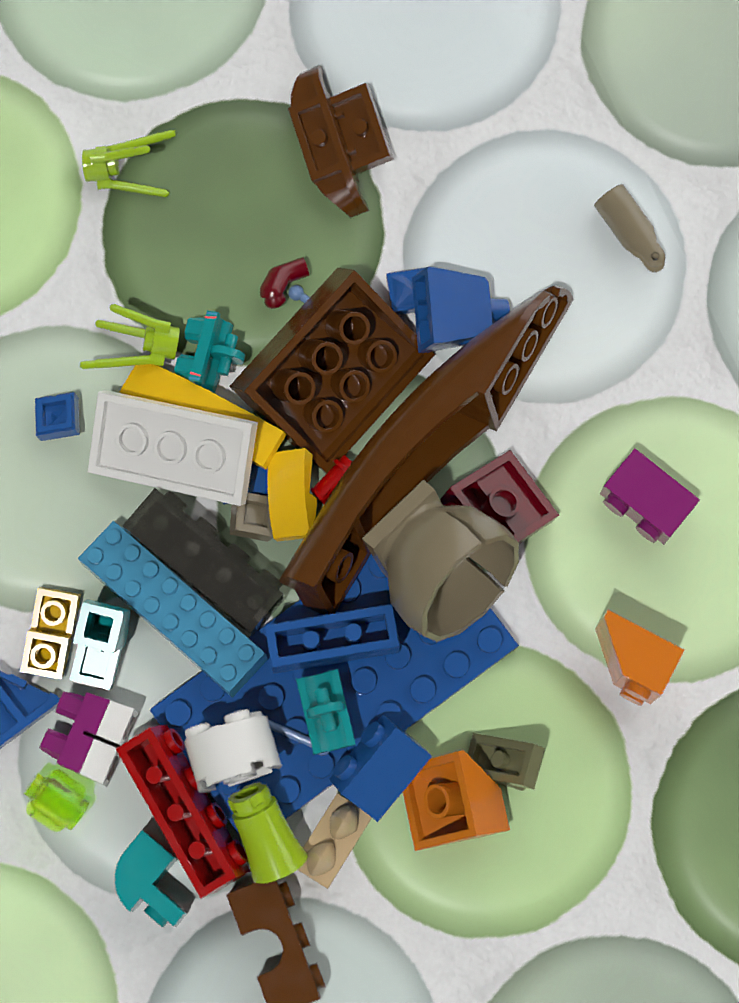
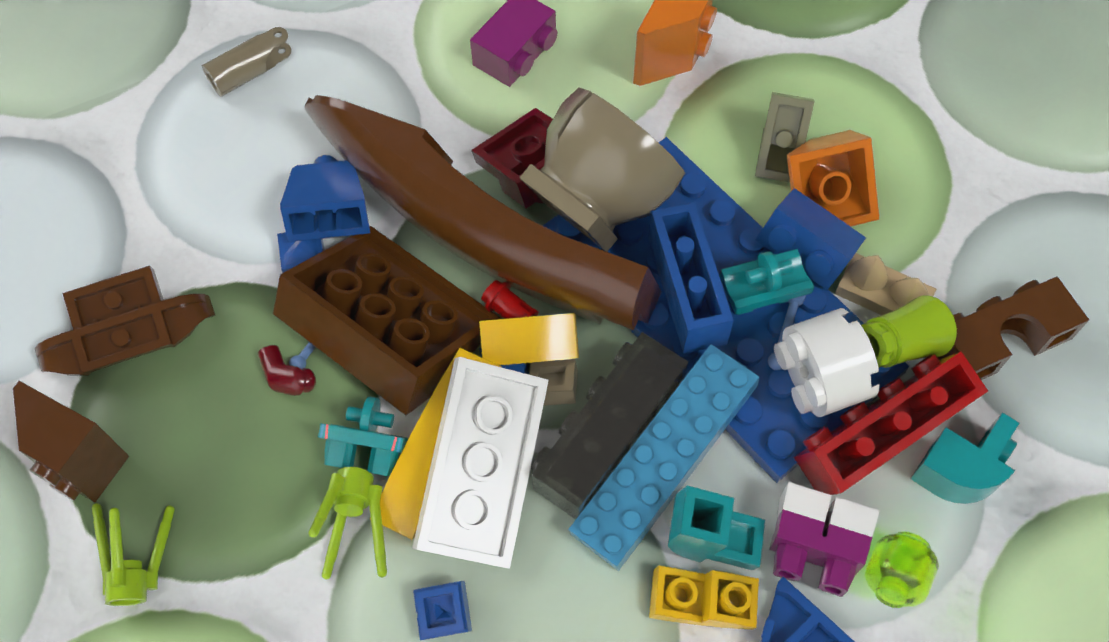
camera: 90 degrees left, 15 degrees down
(215, 101) = (65, 445): none -> reddish brown slope

